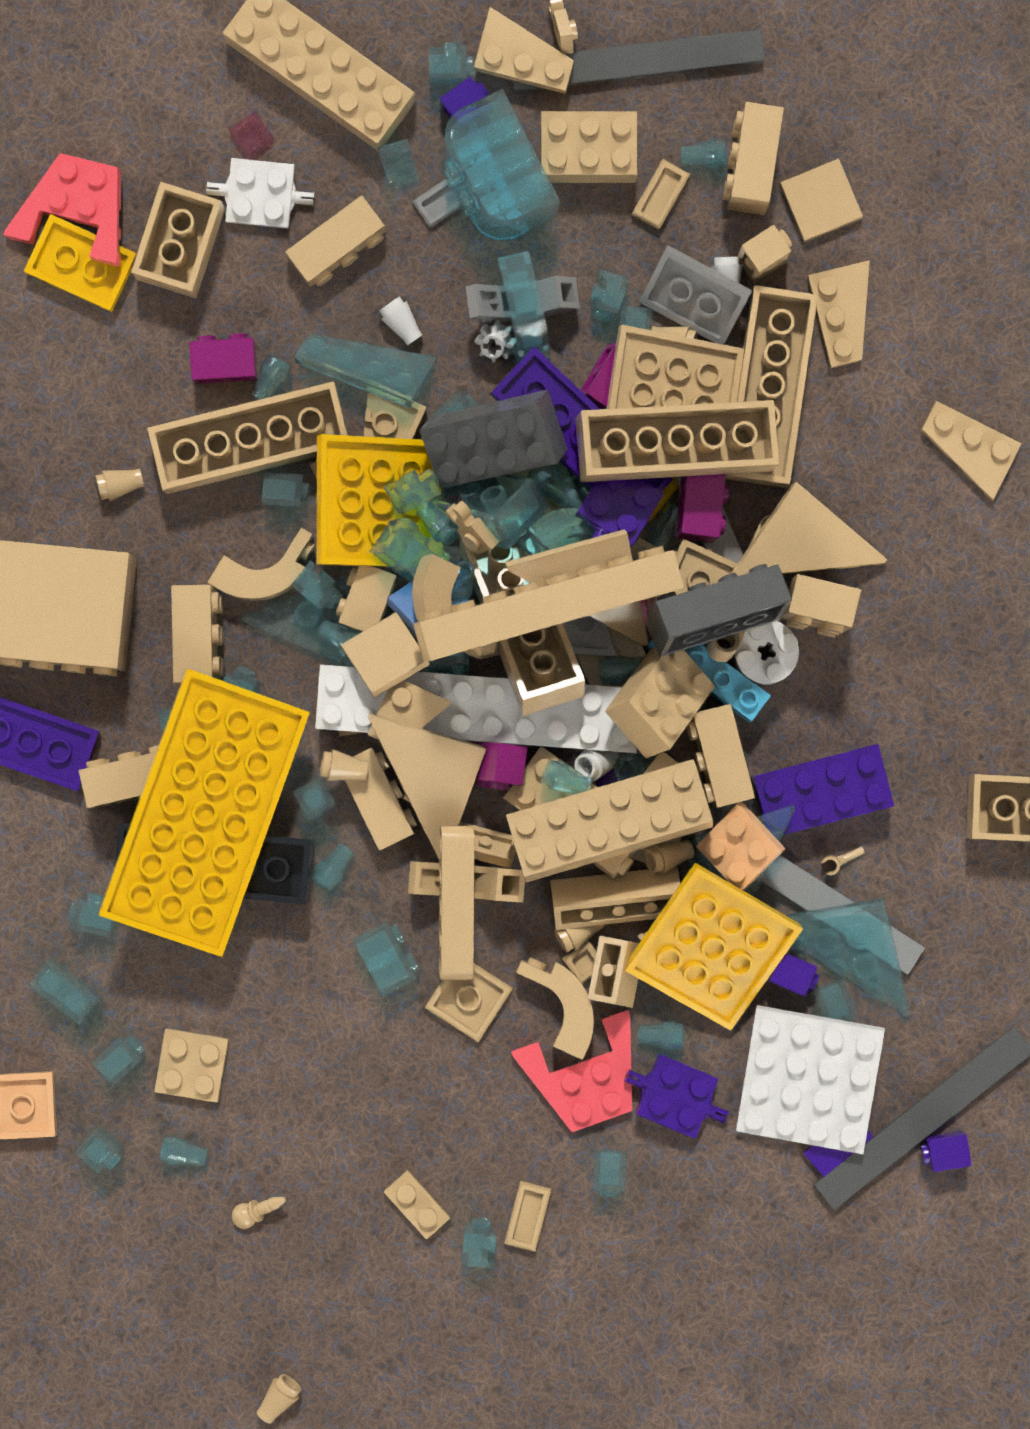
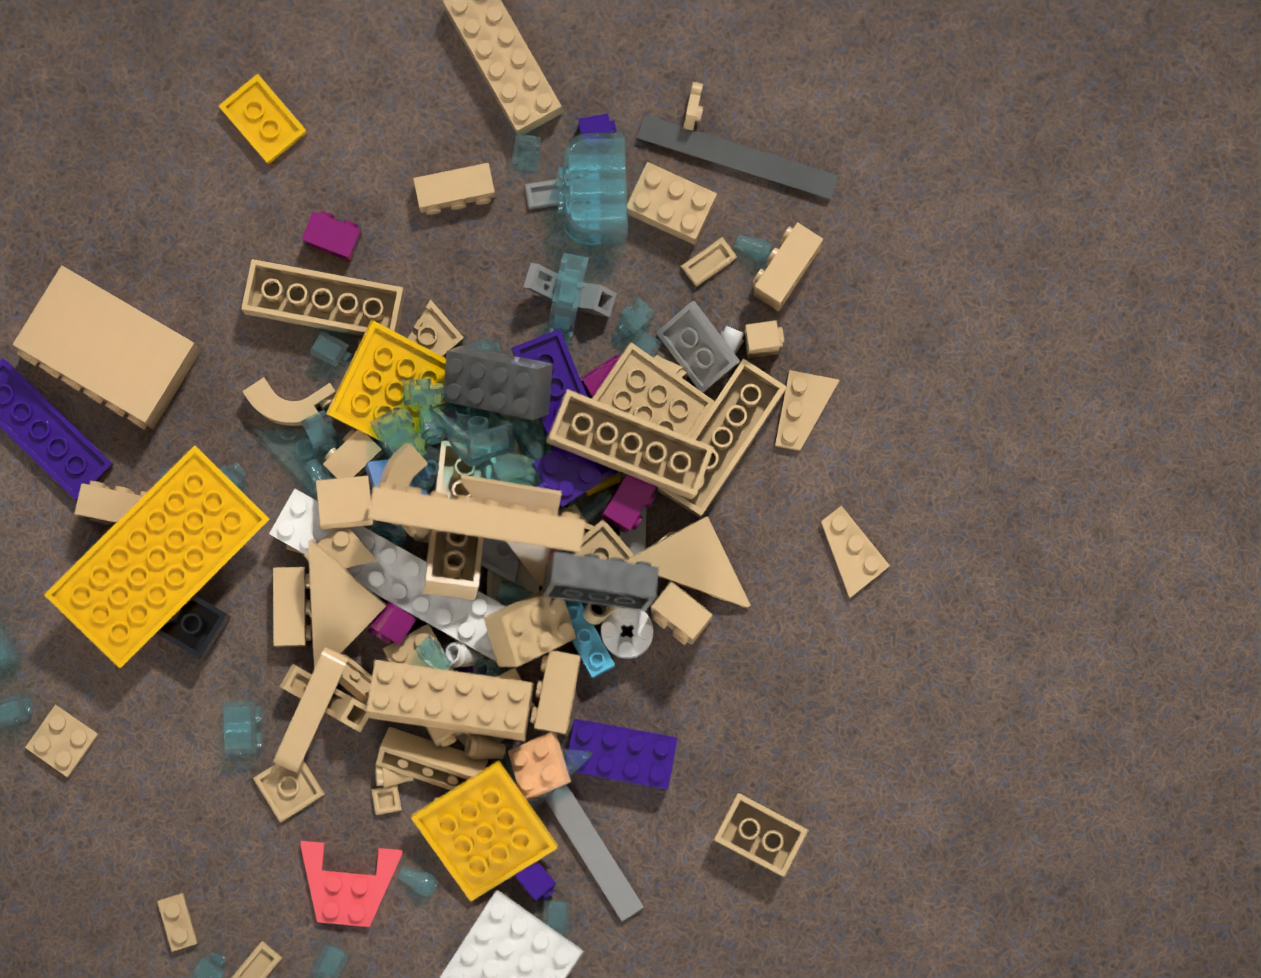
camera: 25 degrees right, 5 degrees down
(77, 193) = (285, 68): coral wing -> none
(86, 918) = (35, 596): clear light blue brick -> none
(116, 483) = (213, 289): tan cone -> none
(178, 240) = (340, 134): tan brick -> none
(180, 1152) = (22, 801): clear light blue cone -> none
(196, 631) = (217, 423): tan brick -> none
(246, 1214) = (48, 871): tan bar -> none
(251, 134) = (431, 82): clear pink tile -> none
(260, 193) = (417, 128): white plate -> none
(271, 377) = (361, 264): clear light blue cone -> none
(315, 798) = (246, 585): clear light blue brick -> none
(332, 868) = (234, 643): clear light blue cone -> none
(342, 767) = (274, 570): tan cone -> none
(375, 369) = (435, 290): clear light blue wing -> none
(401, 320) = (475, 266): white cone -> none
(449, 65) = (597, 98): clear light blue brick -> none
(474, 532) = (450, 440): tan plate -> none
(495, 341) = (536, 312): white gear -> none
(520, 56) = (652, 115): tan wing -> none
(578, 1013) = (365, 828): tan arch -> none
(609, 979) = (397, 820): tan brick -> none
(676, 1096) = (407, 931): dark purple plate -> none
(821, 200) = (825, 320): tan tile -> none
(843, 859) = (613, 813): tan hand -> none
(856, 945) = (593, 881): clear light blue tile -> none

